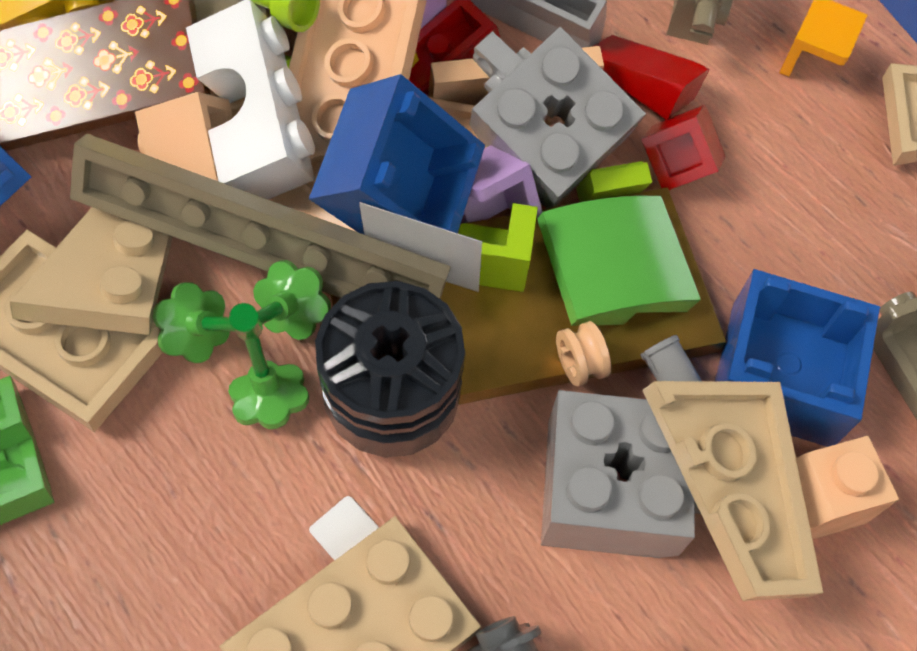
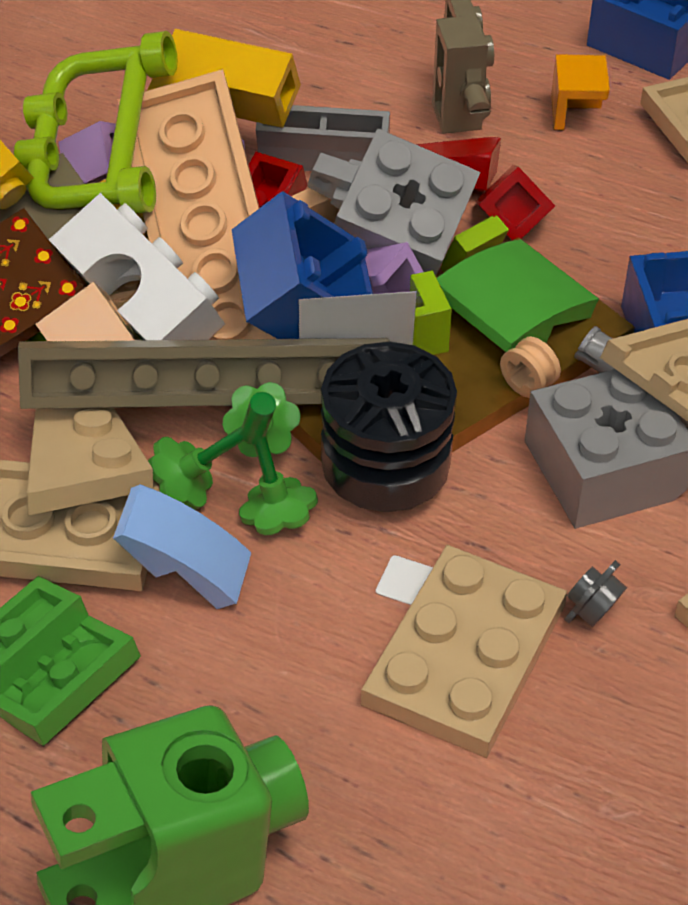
camera: 20 degrees left, 15 degrees down
(136, 410) = (176, 538): none -> light blue slope

